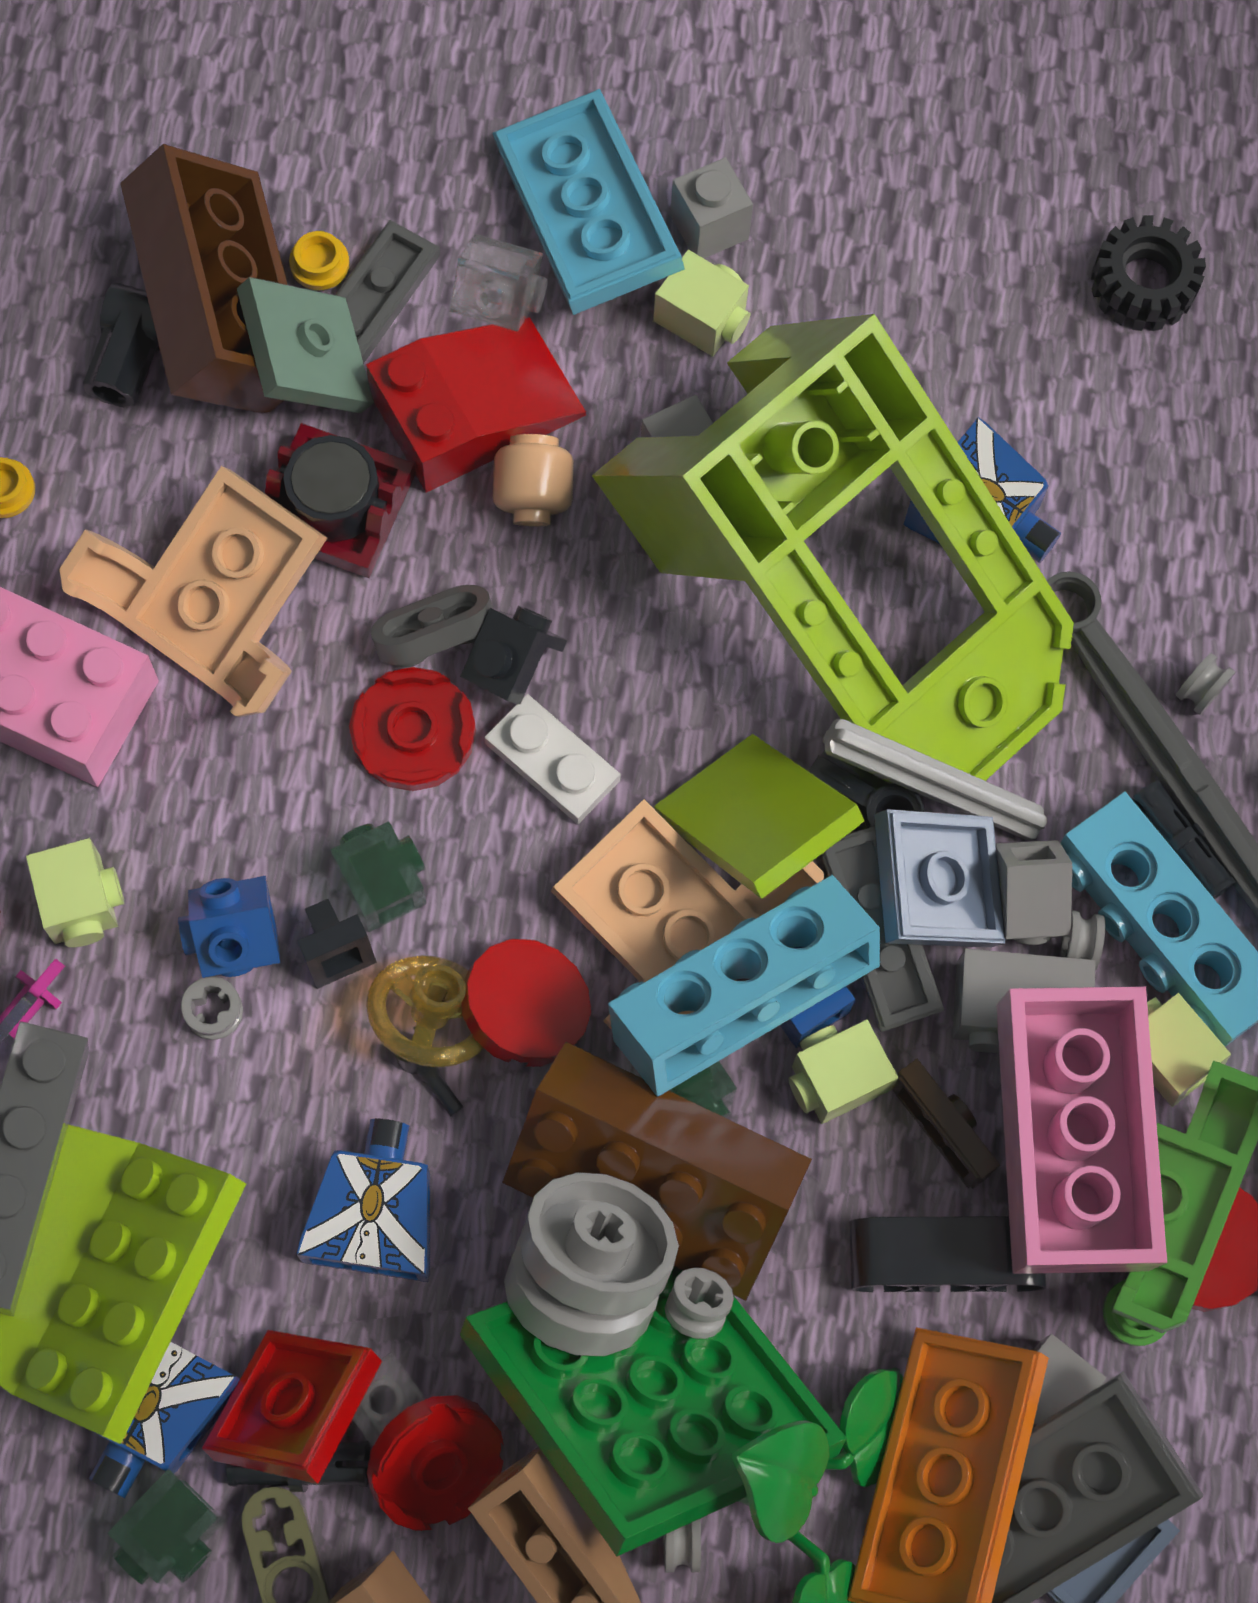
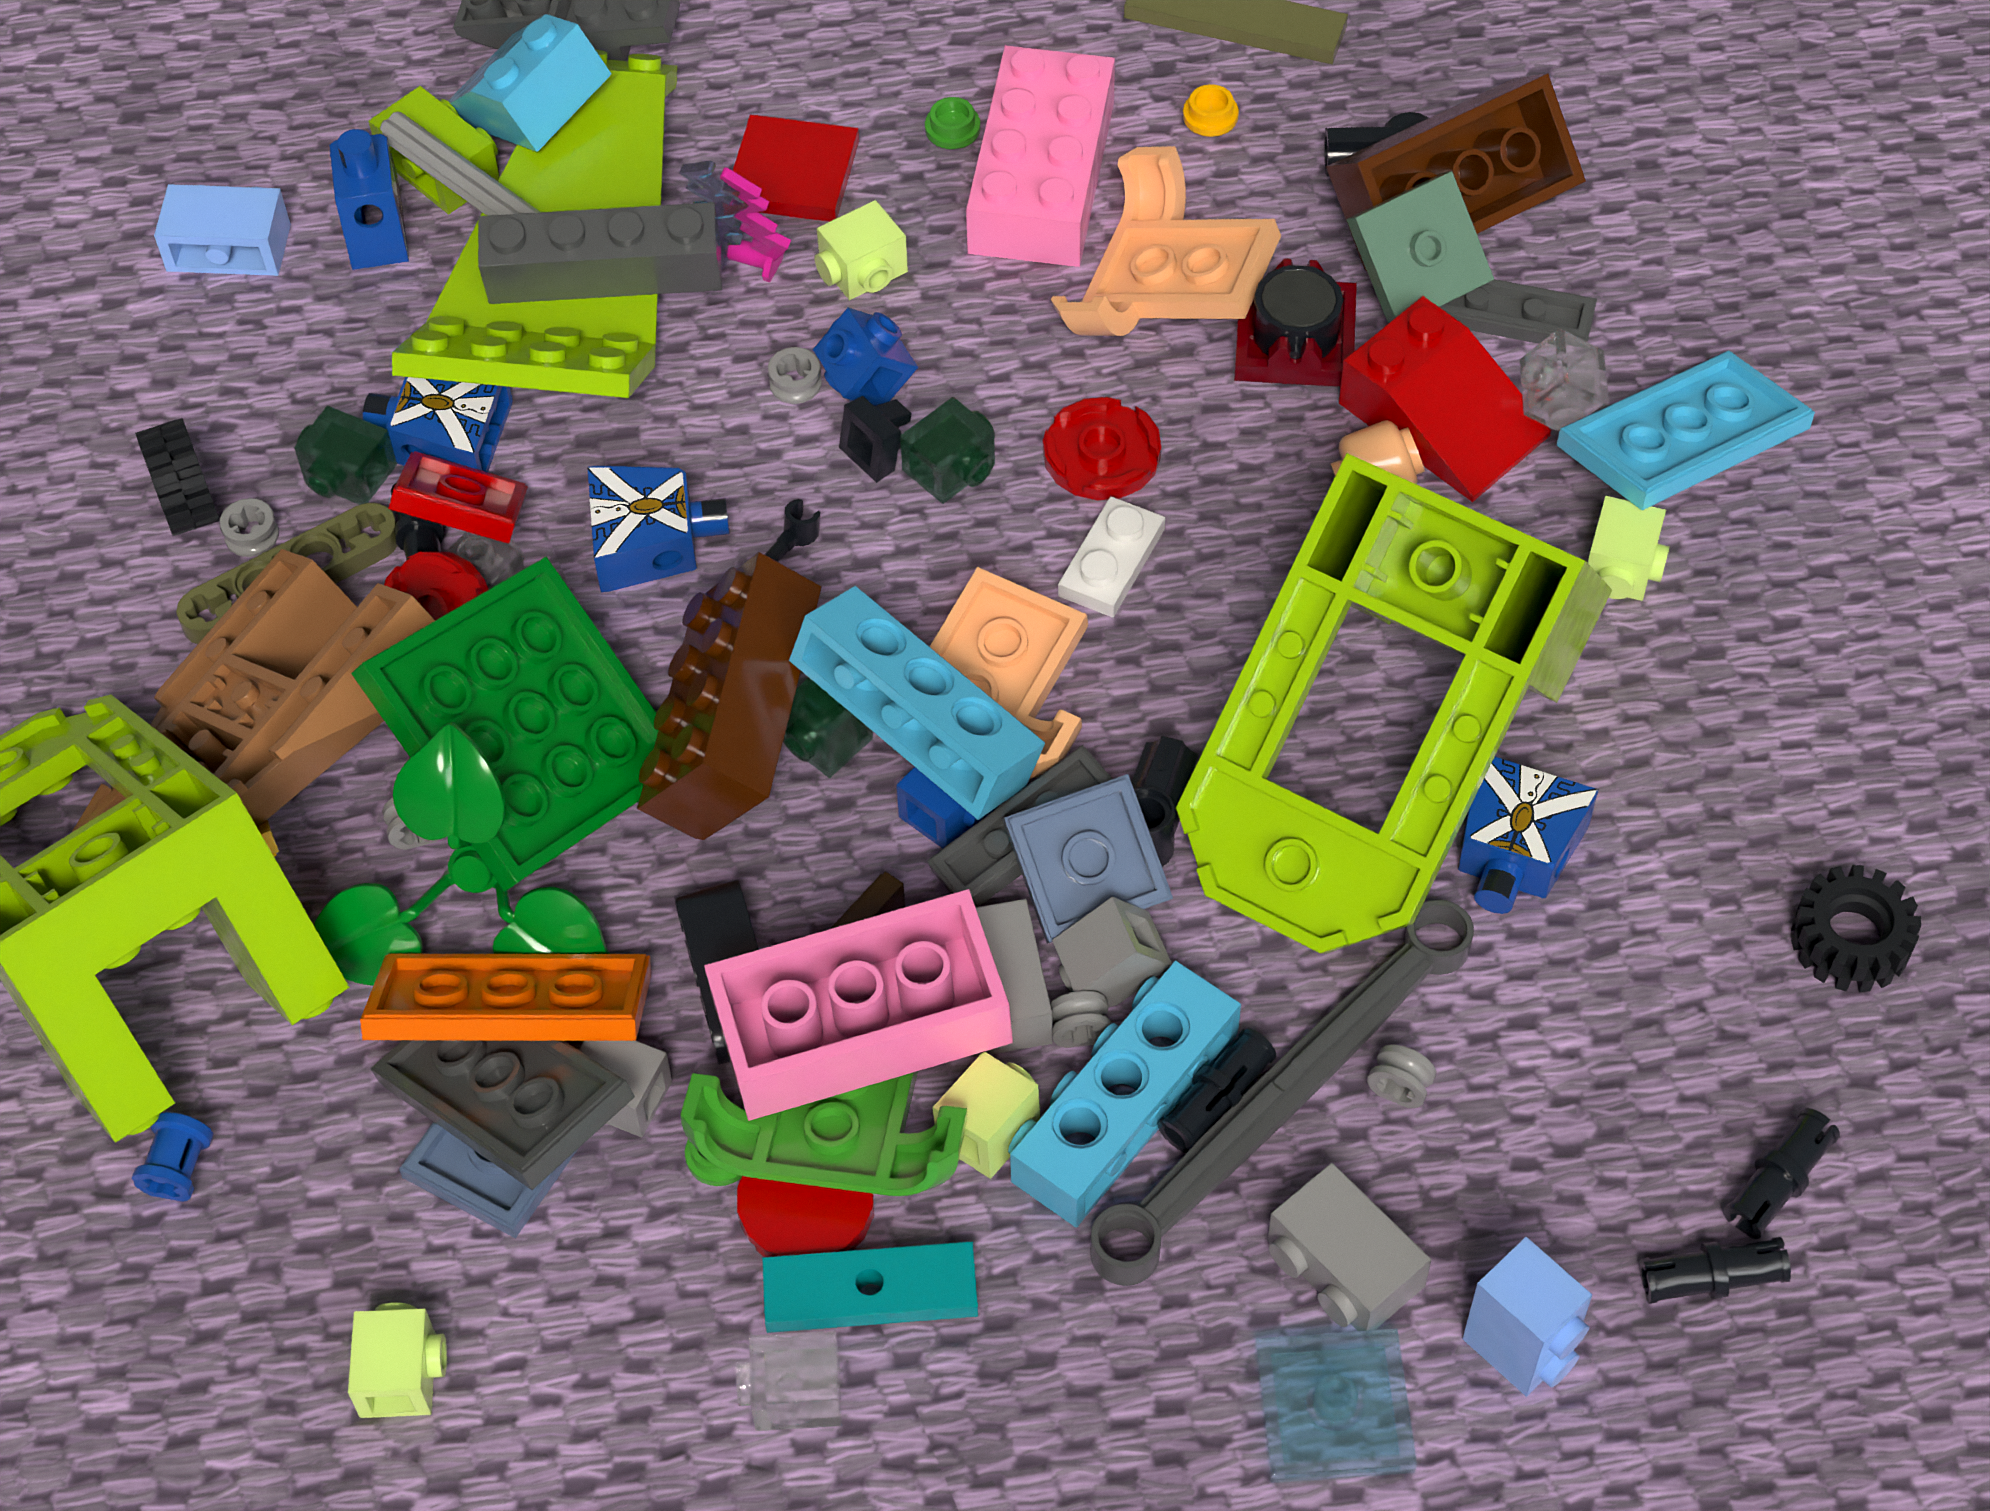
camera: 80 degrees right, 15 degrees down
(319, 261) = (1530, 260): yellow plate -> none
(431, 625) = (1203, 429): dark grey plate -> none
(433, 999) = (841, 514): clear yellow piece -> none
(510, 652) = (1199, 482): black bracket -> none
(525, 1002) = (877, 563): red tile -> none
(590, 1264) = (618, 638): light grey wheel -> none
(699, 1303) = (603, 765): light grey bush -> none
(711, 208) = (1728, 529): light grey brick -> none
(759, 815) = (1097, 697): lime tile -> none
(840, 1071) = (879, 837): yellowish green brick -> none
(933, 779) = (1188, 835): light grey axle -> none

